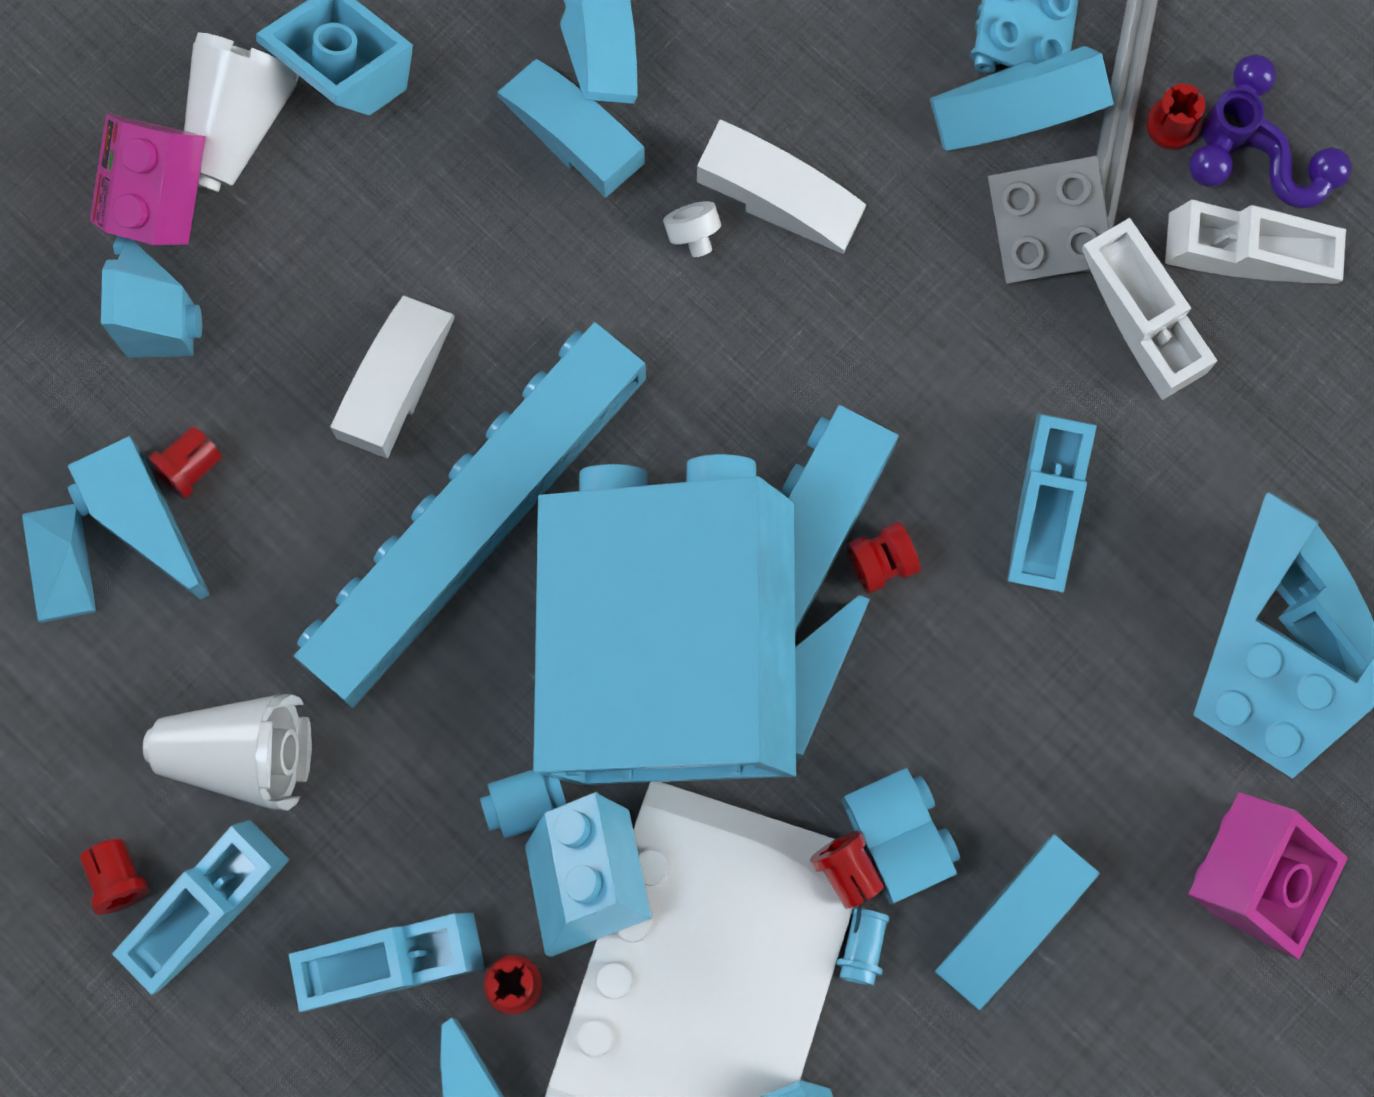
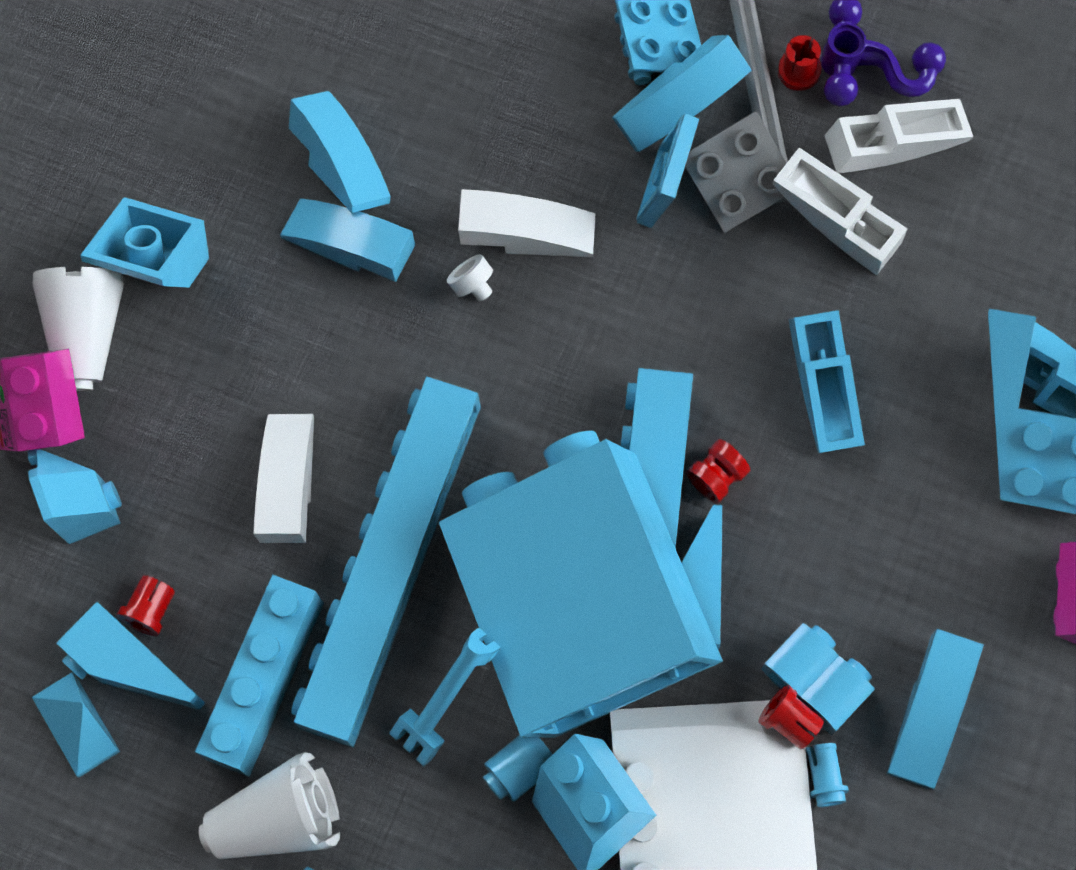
camera: 15 degrees left, 5 degrees down
(278, 589) = (260, 676): none -> medium azure brick
(435, 715) = (421, 727): none -> medium azure hinge
(966, 186) = (667, 170): none -> medium azure tile

